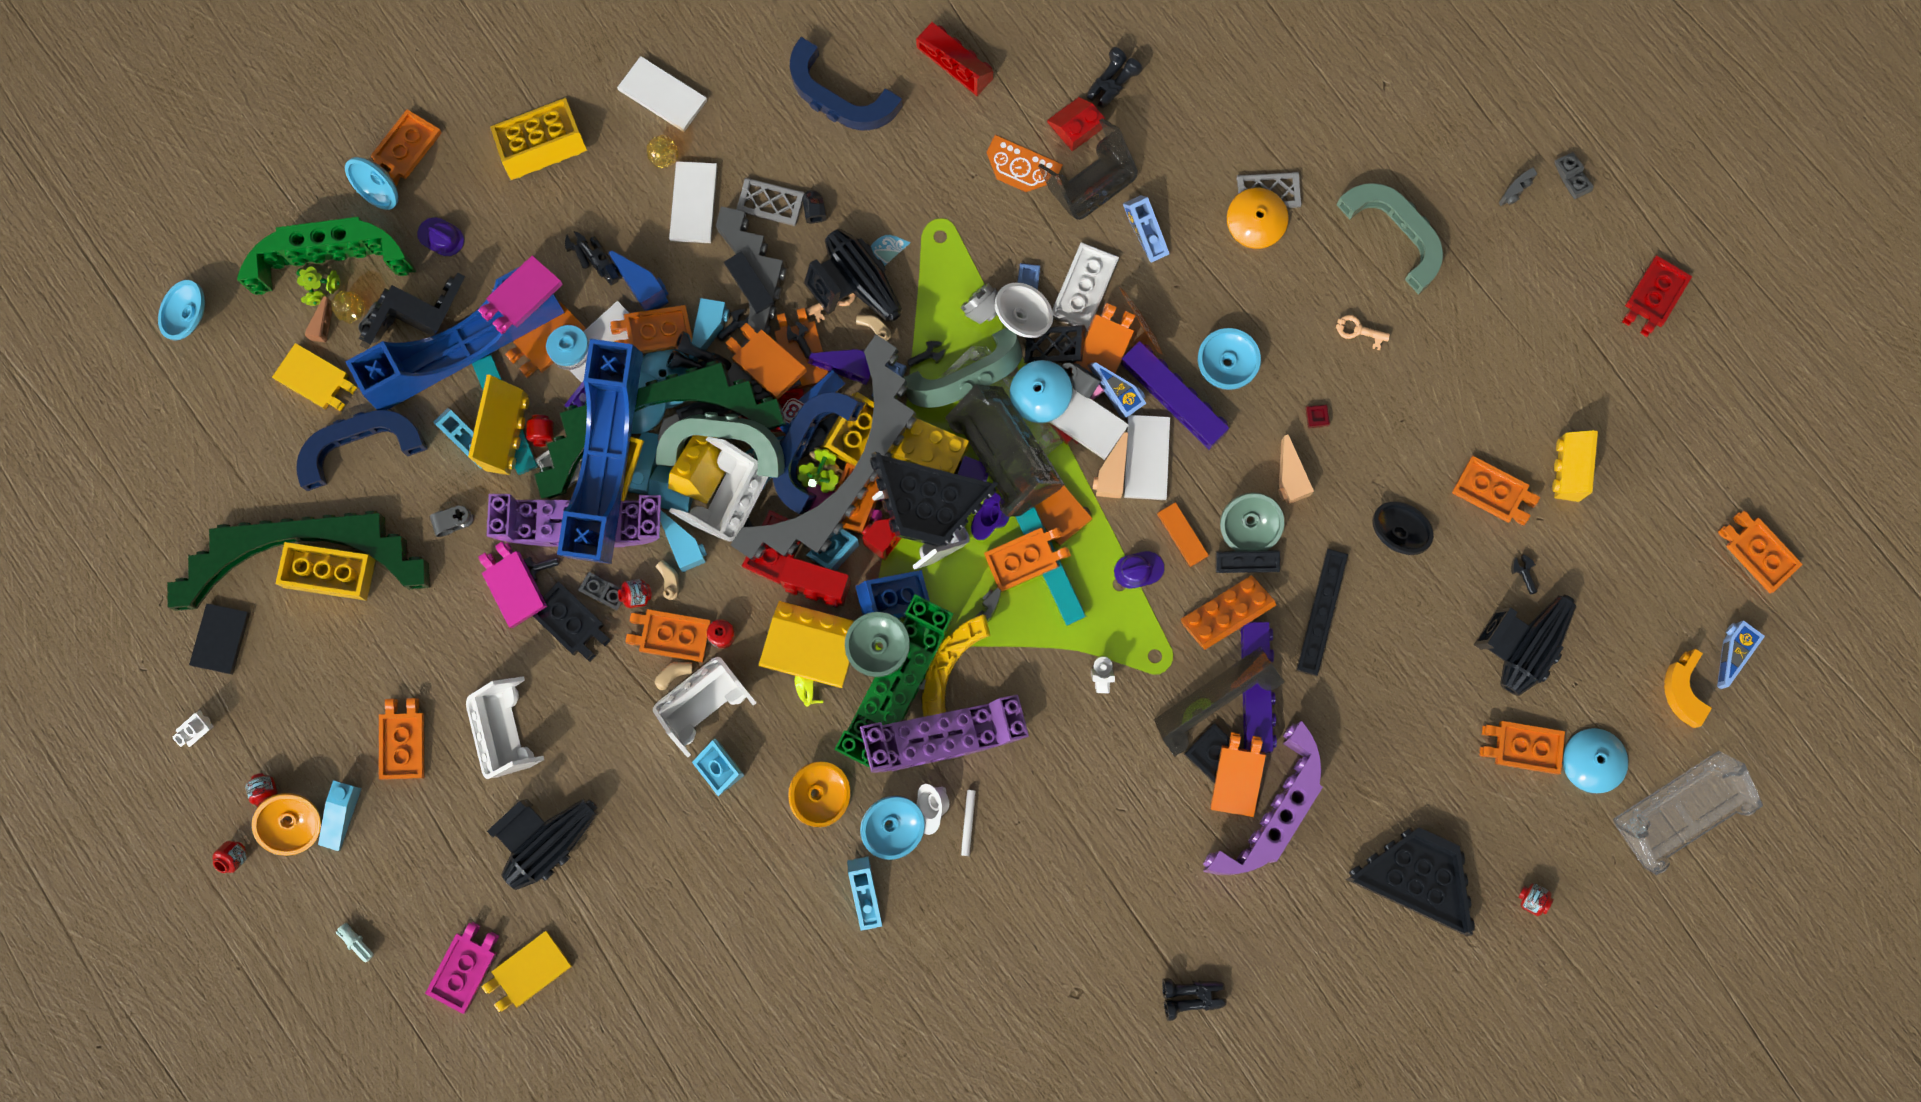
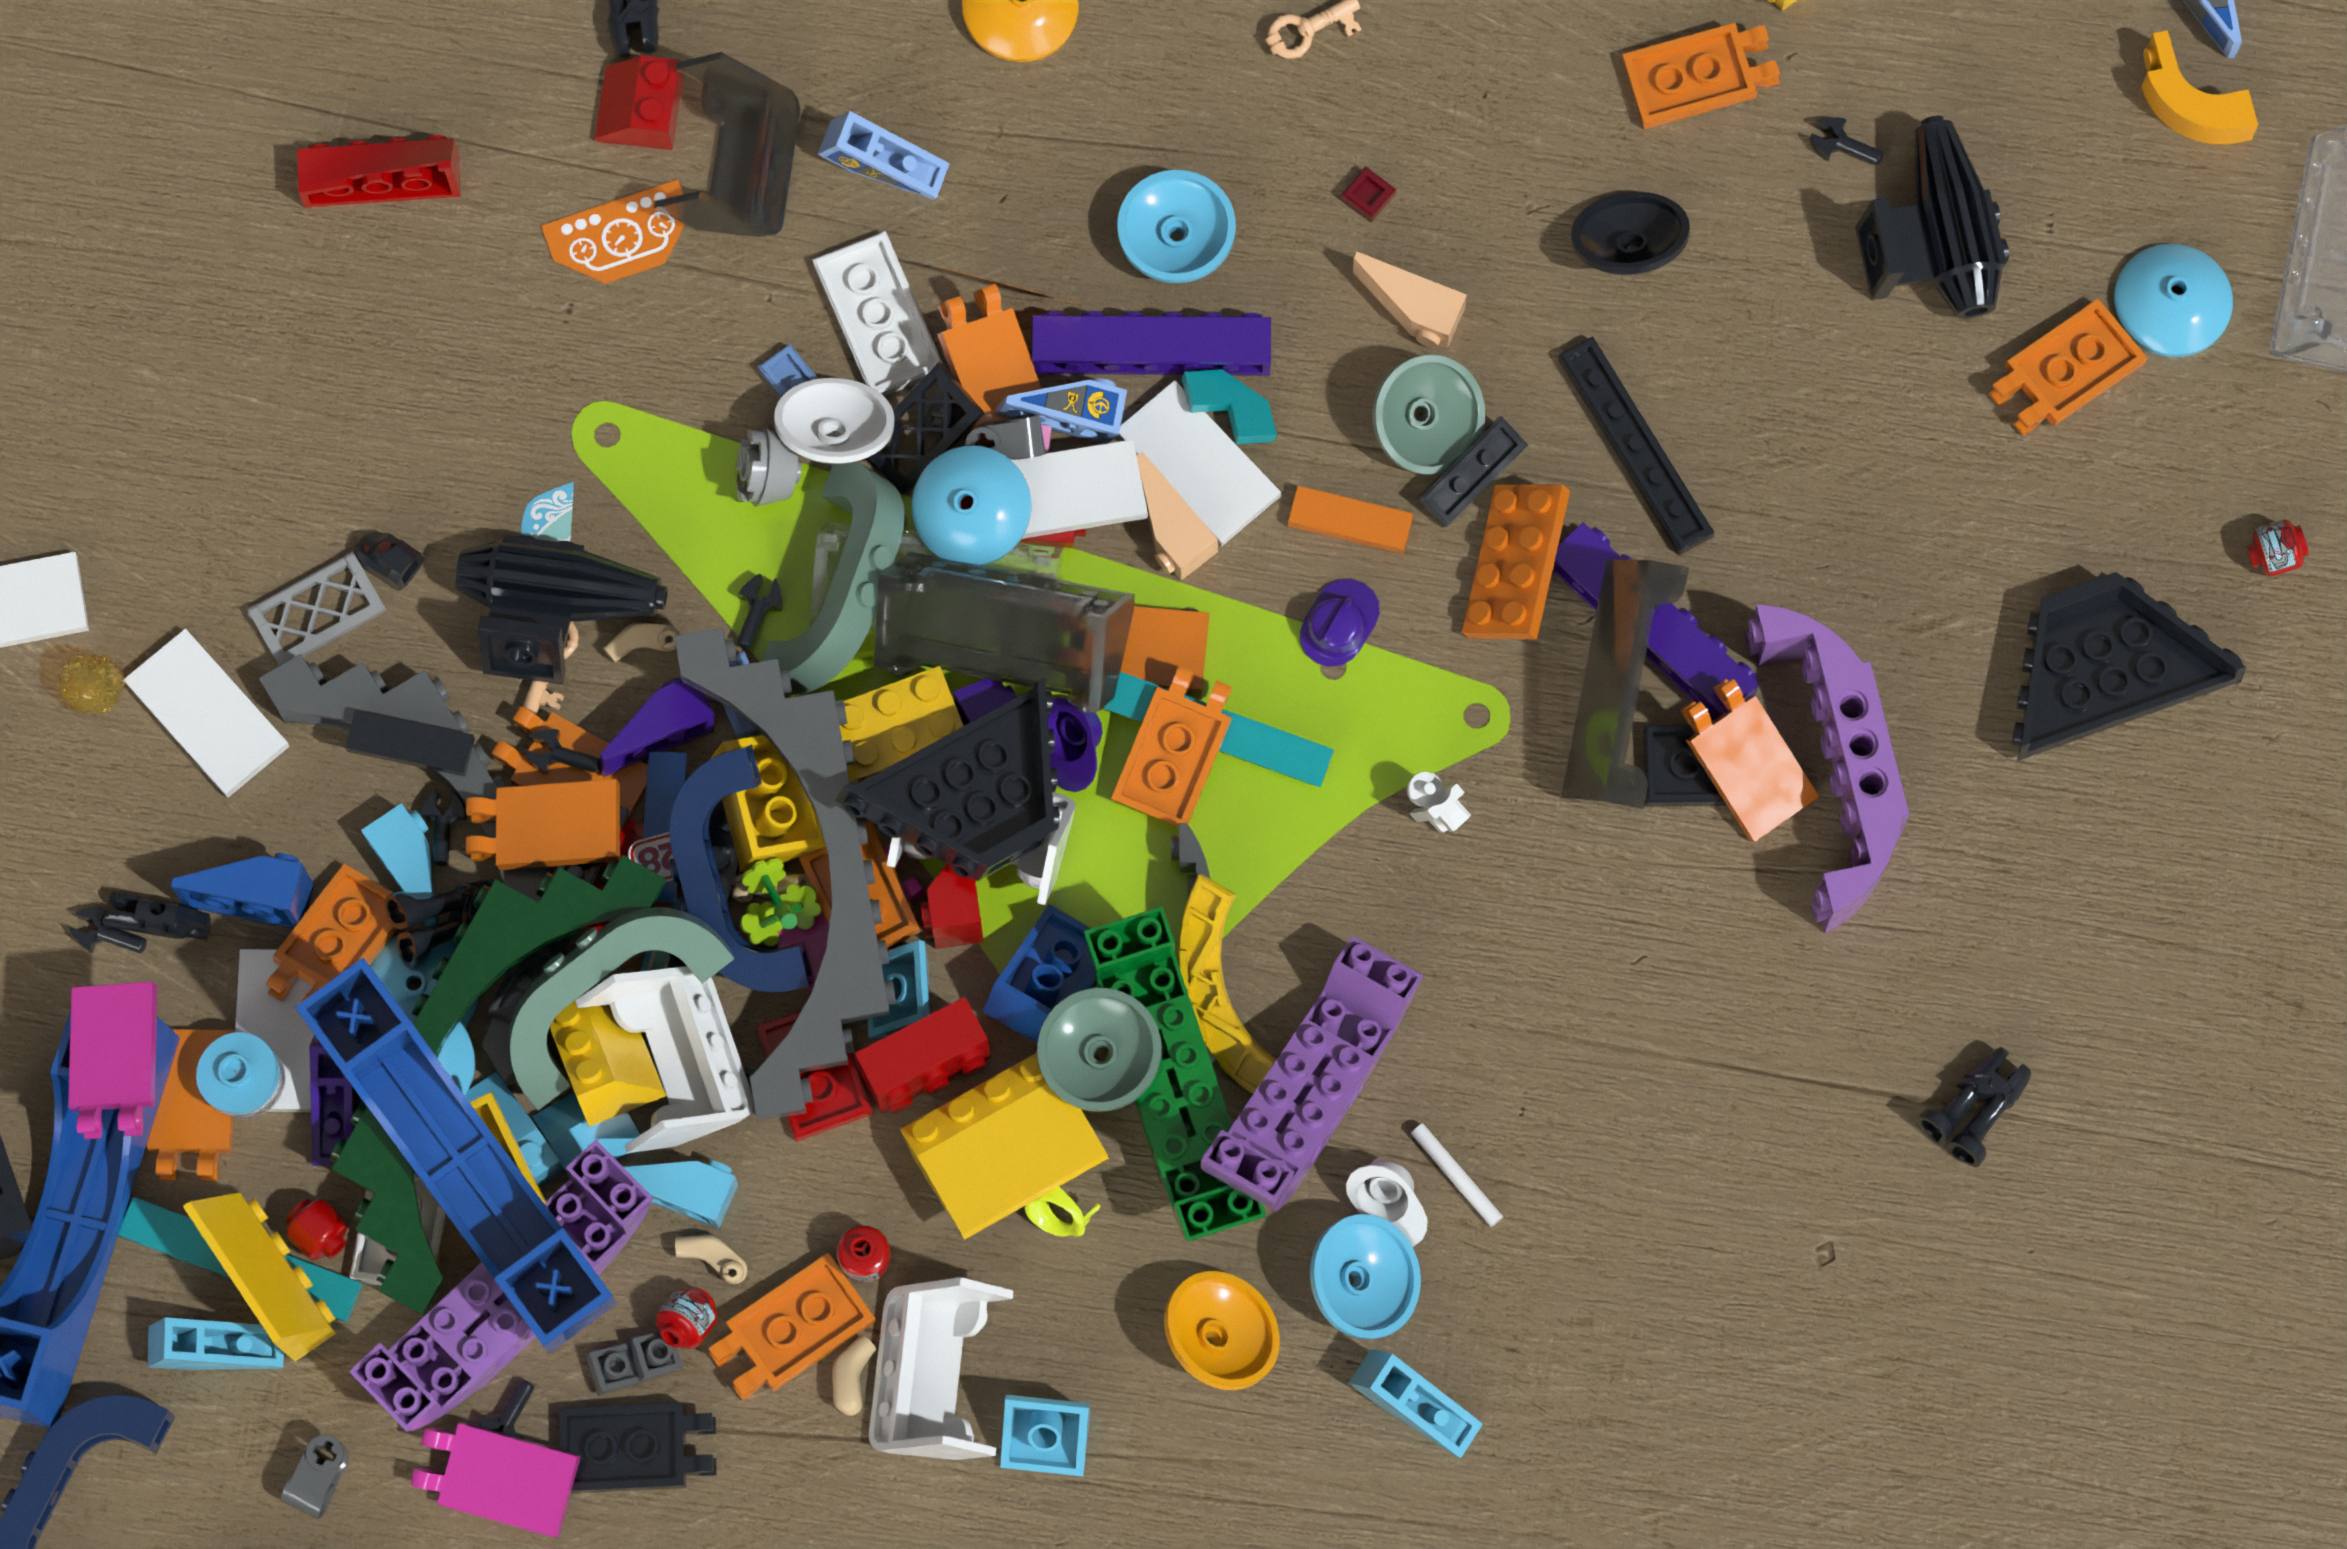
camera: 45 degrees left, 5 degrees down
(836, 108) = (264, 395): dark blue arch -> none
(1186, 453) = (1220, 391): none -> teal tile

